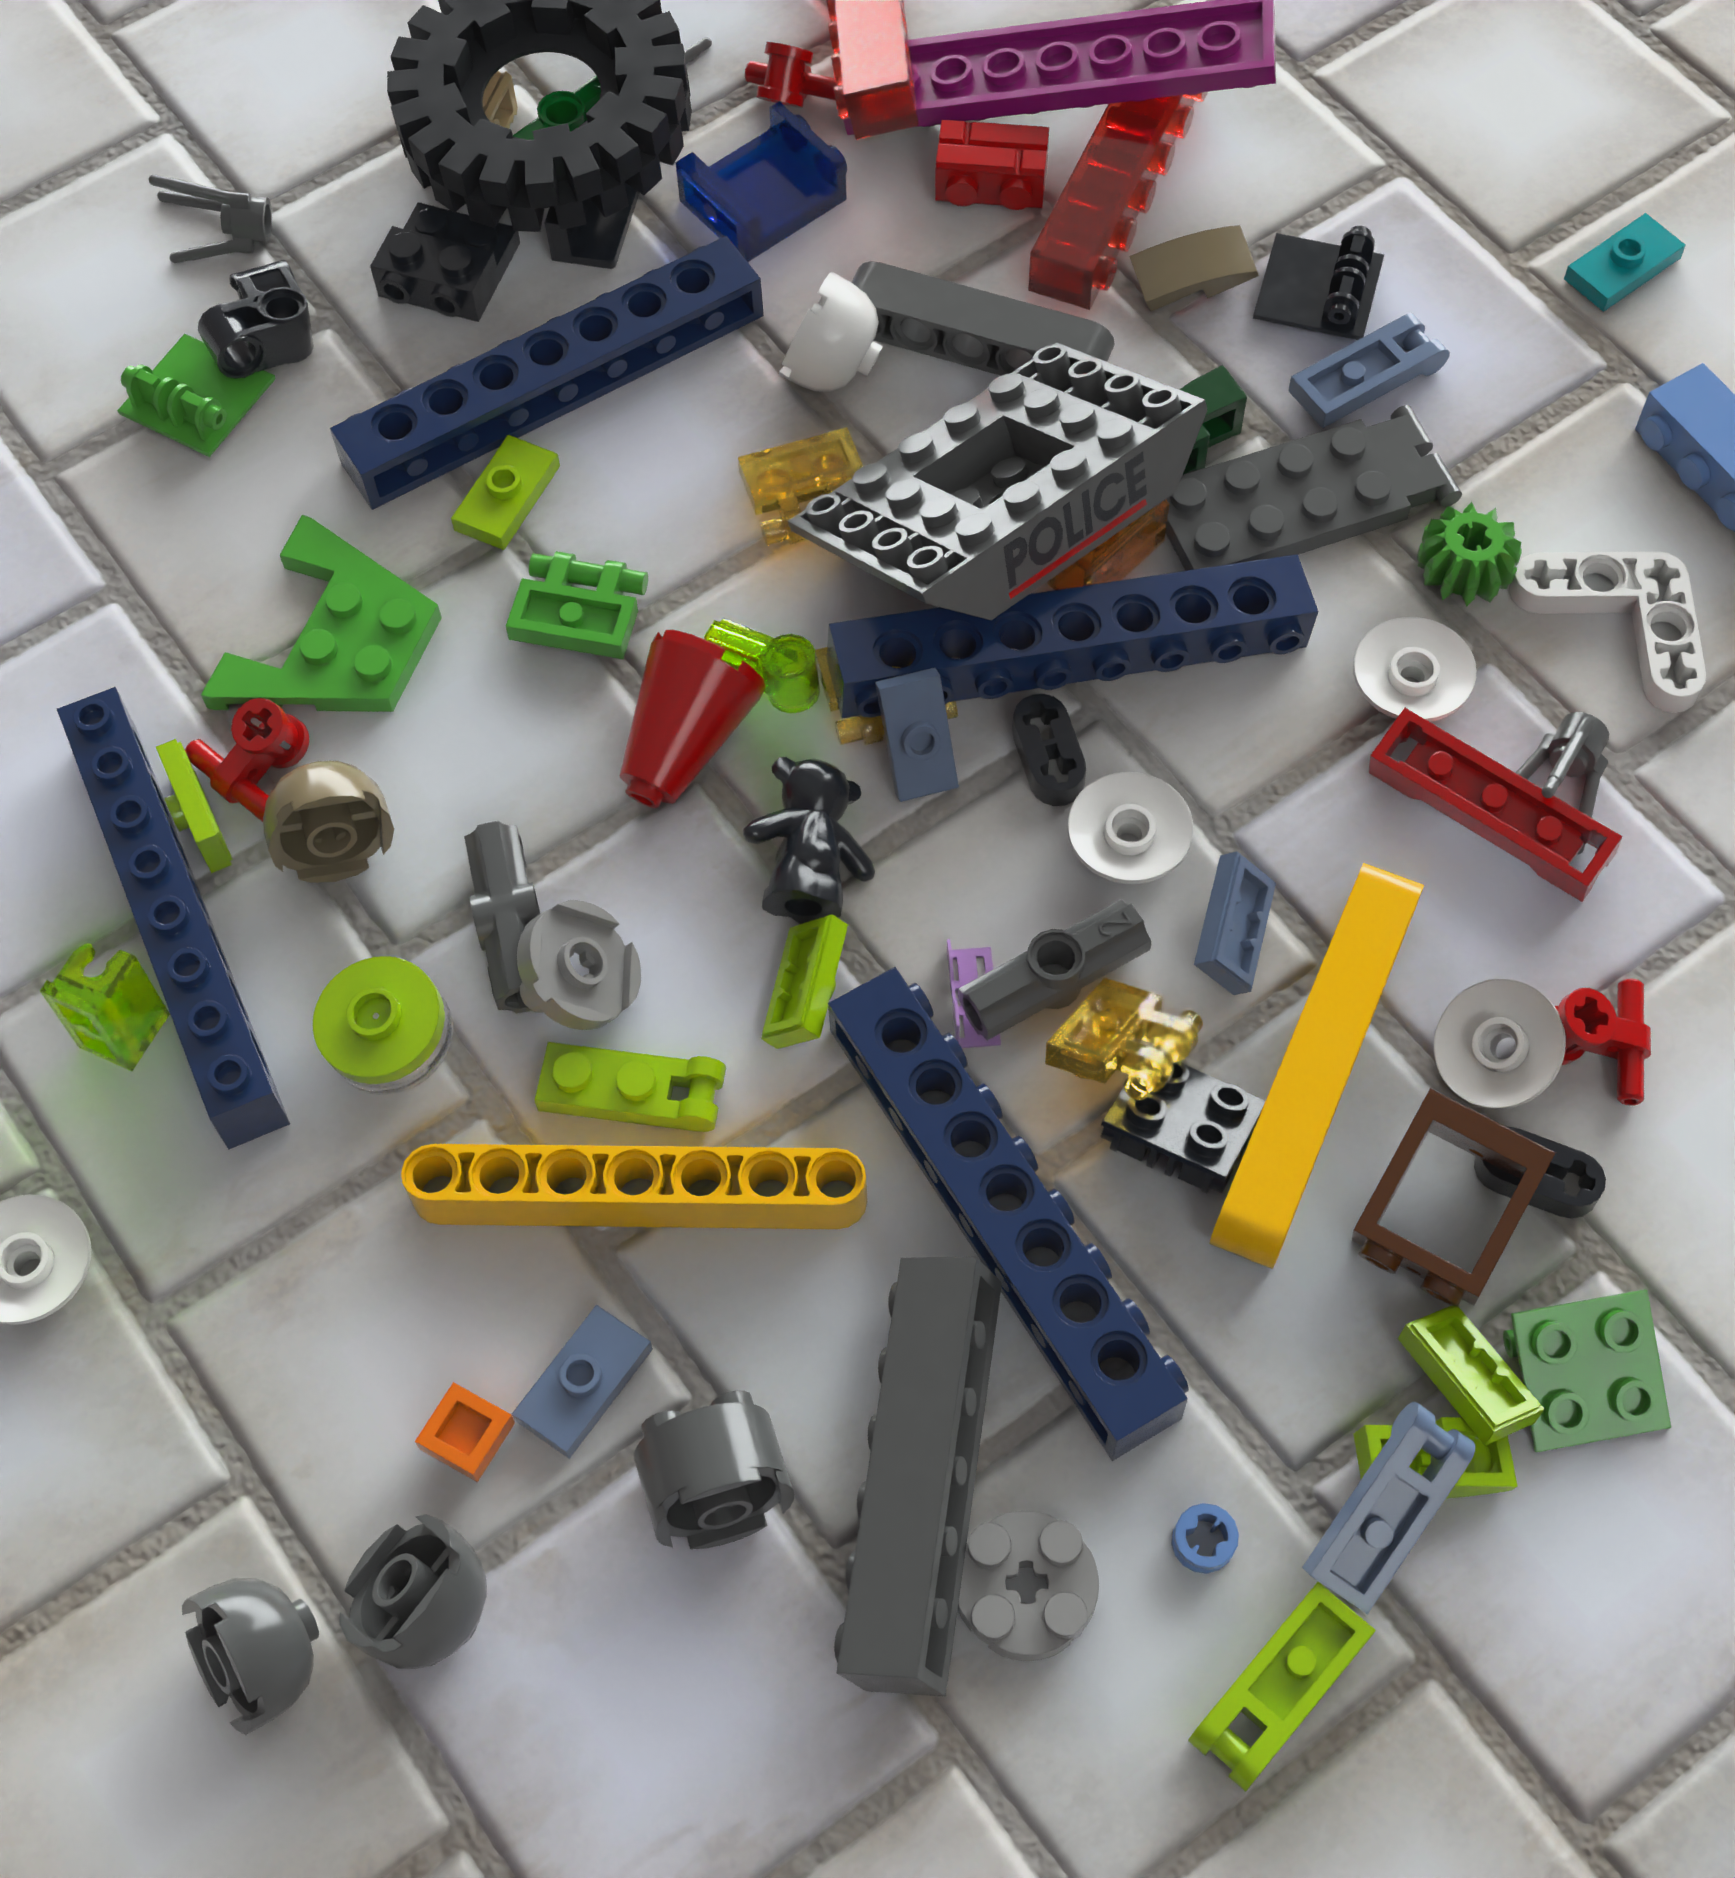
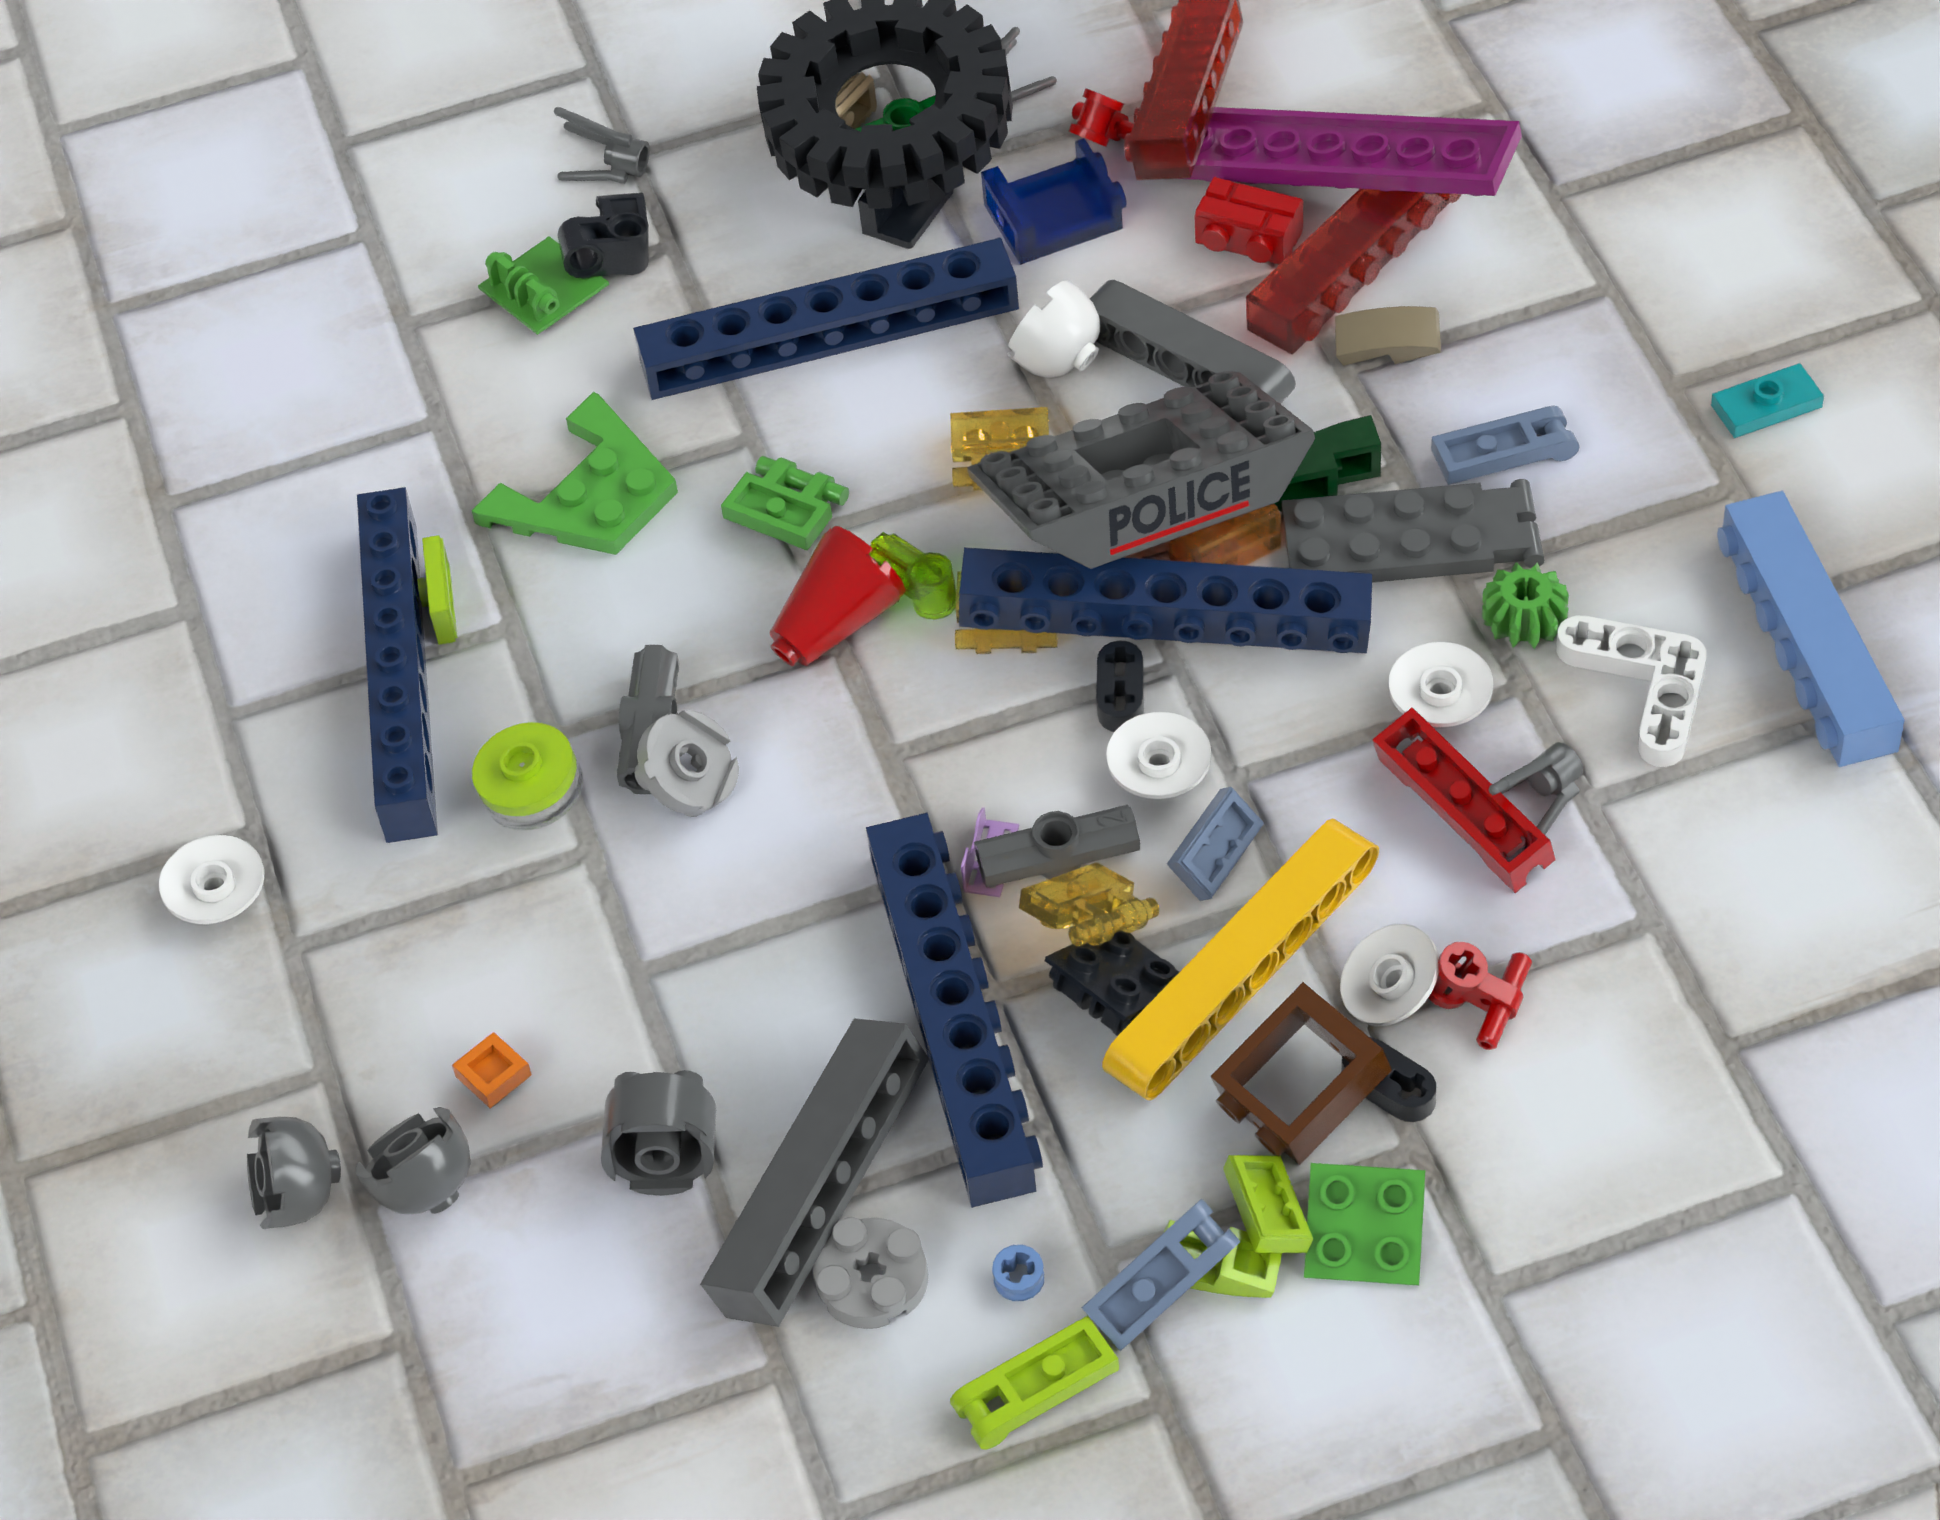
camera: 20 degrees right, 10 degrees down
(108, 1013) = (328, 715): clear neon green hinge -> none
(253, 754) = (496, 562): red piece -> none
(326, 821) = (532, 619): dark tan cylinder -> none
(443, 262) = (772, 218): black plate -> none
(505, 492) = (759, 406): lime plate -> none
(582, 1381) = (591, 1058): sand blue plate -> none
(609, 1168) = (597, 910): yellow beam -> none
(629, 1087) = (699, 862): lime plate -> none
(804, 982) = (858, 811): lime plate -> none
(808, 860) = (888, 735): black piece -> none
(917, 734) = (1010, 648): sand blue plate -> none
(1321, 283) = (1493, 369): black hinge -> none

